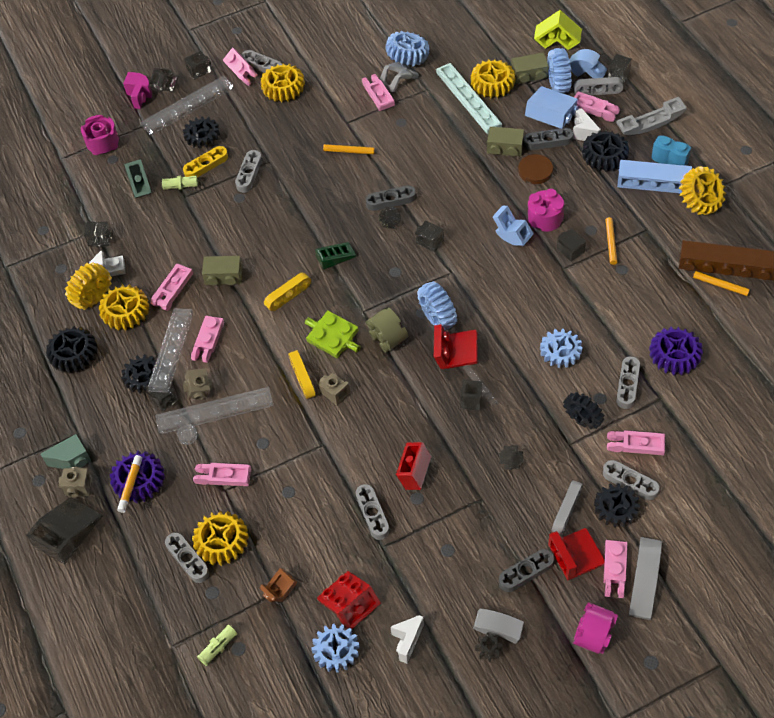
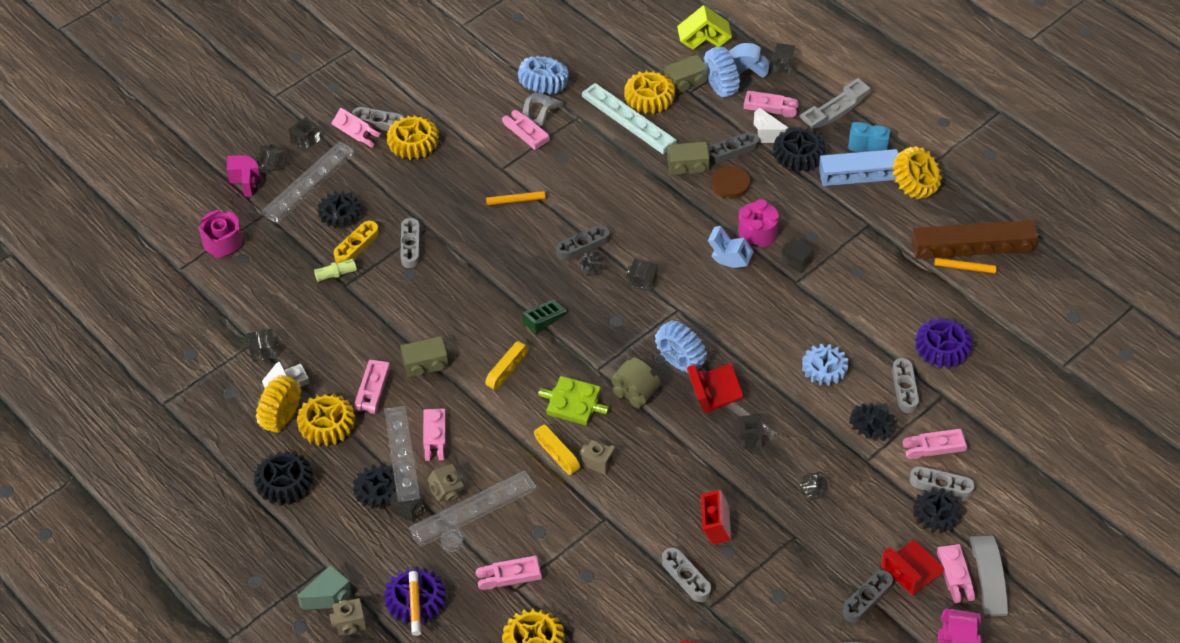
camera: 20 degrees left, 5 degrees down
(137, 178) = (284, 273): sand green slope -> none
(551, 107) = (726, 112): light blue brick -> none
(567, 507) = (888, 522): light grey beam -> none
(610, 81) = (779, 79): light grey beam -> none
(611, 241) = (837, 243): light orange bar -> none

